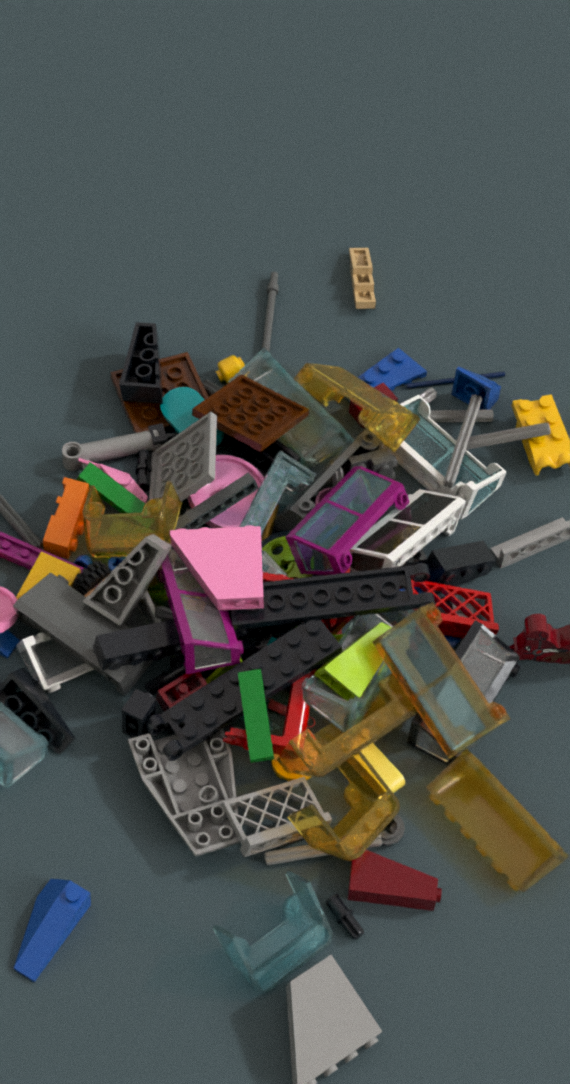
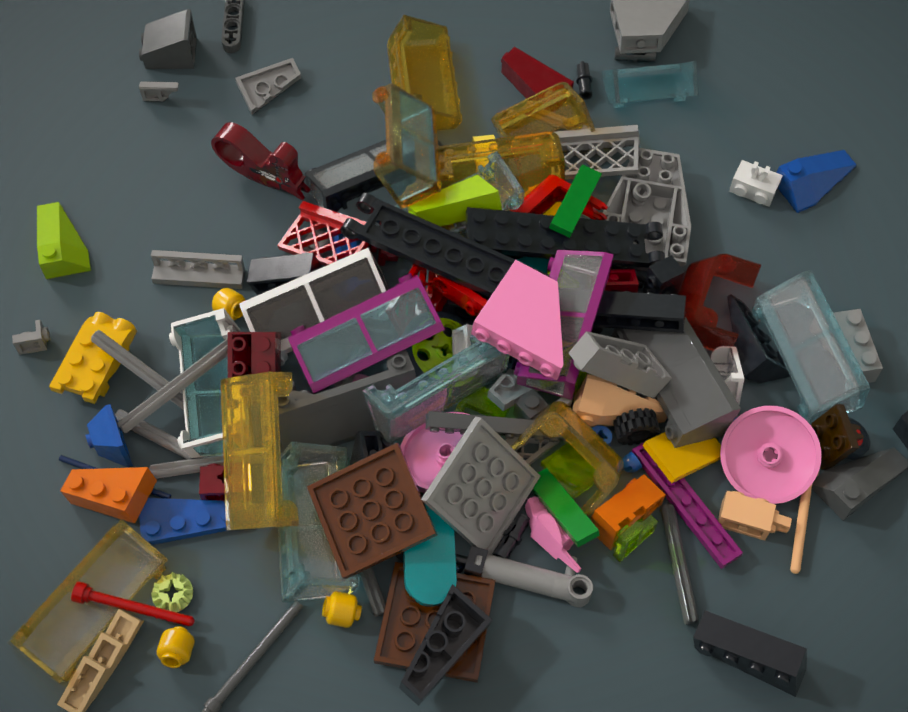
camera: 145 degrees left, 5 degrees up
(52, 491) = (633, 536): none -> clear neon green plate
(106, 750) = (696, 286): none -> clear red windscreen
(106, 878) = (755, 183): none -> white brick
(322, 302) = (175, 647): none -> yellow head
(352, 339) = (179, 600): none -> yellowish green gear
(401, 298) = (65, 629): none -> clear windscreen
(406, 301) = (84, 593): none -> red piece
(421, 476) = (253, 353): none -> dark red slope
(441, 357) = (110, 490): none -> orange wedge
(484, 525) = (229, 300): none -> yellow head

